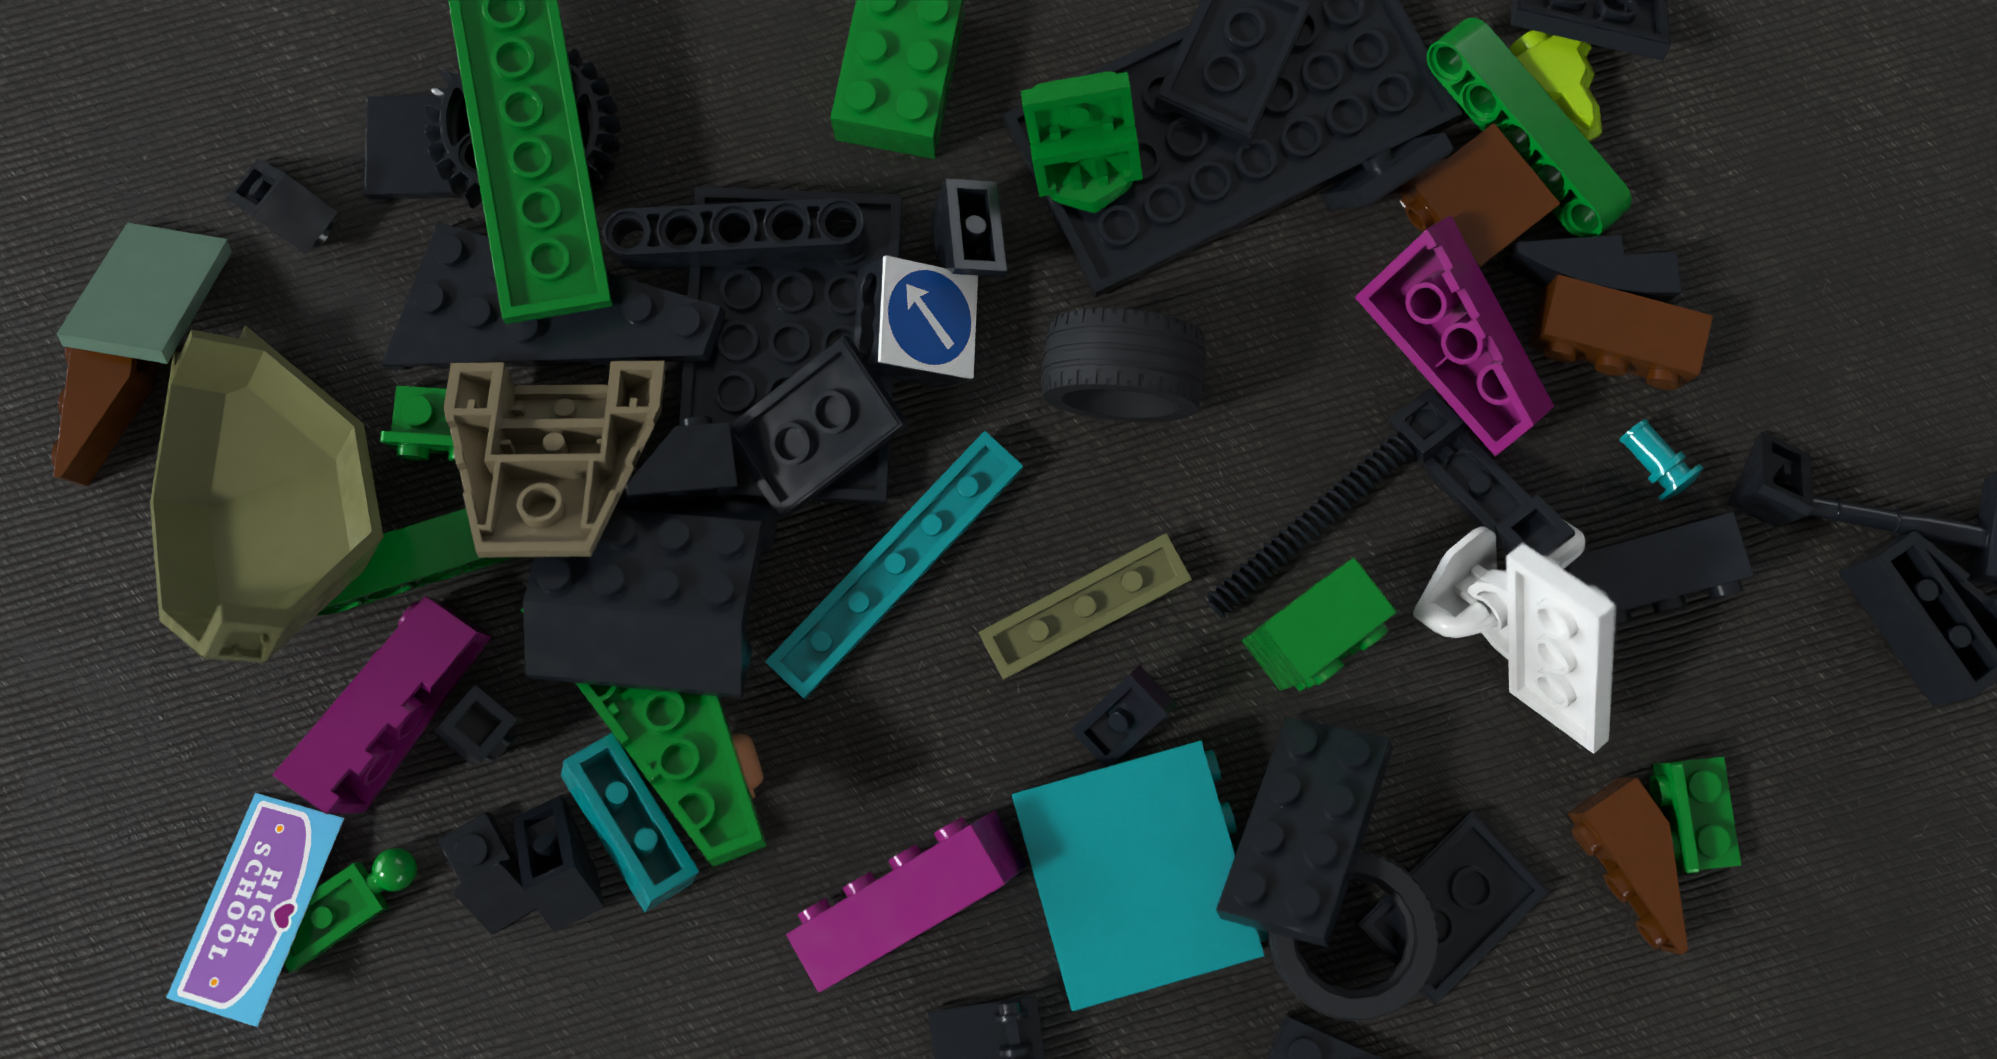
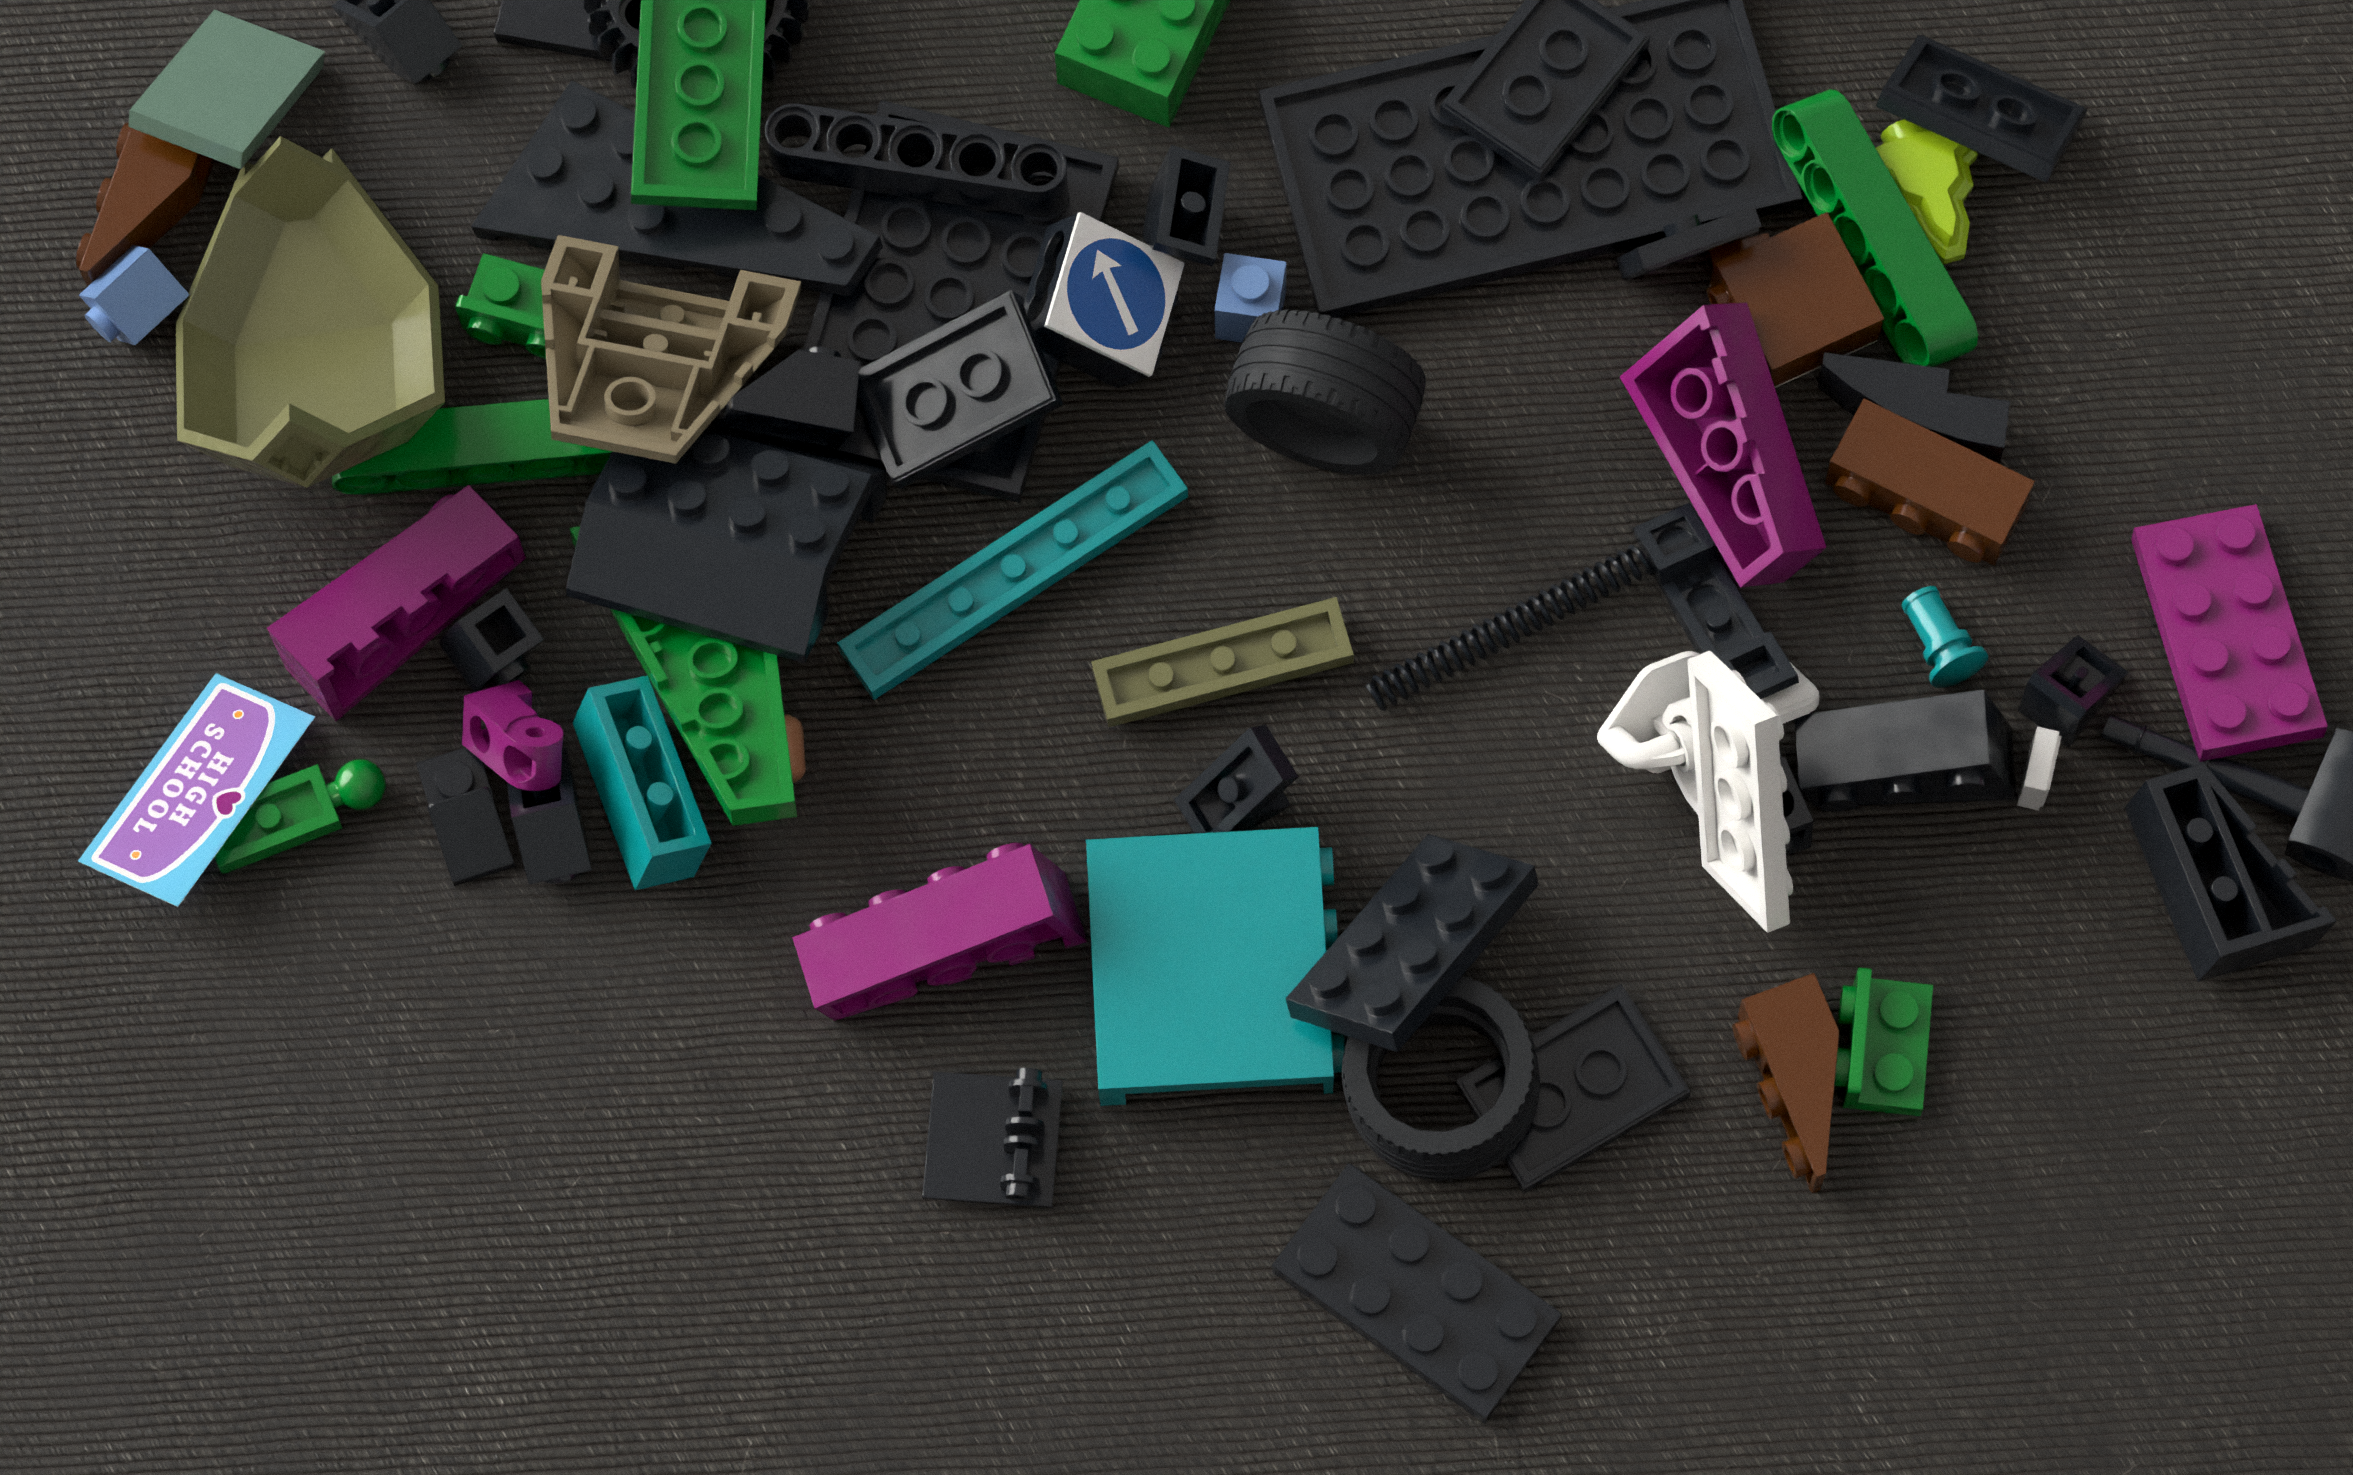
camera: 15 degrees right, 10 degrees down
(106, 489) = (132, 296): none -> medium blue brick
(510, 812) = (516, 740): none -> magenta leg
(1036, 292) = (1245, 291): none -> medium blue brick
(1083, 139) = (1339, 135): green piece -> none
(1321, 628) = (1476, 722): green brick -> none
(1767, 554) = (2039, 768): none -> white tile
(1888, 407) = (2228, 633): none -> magenta plate

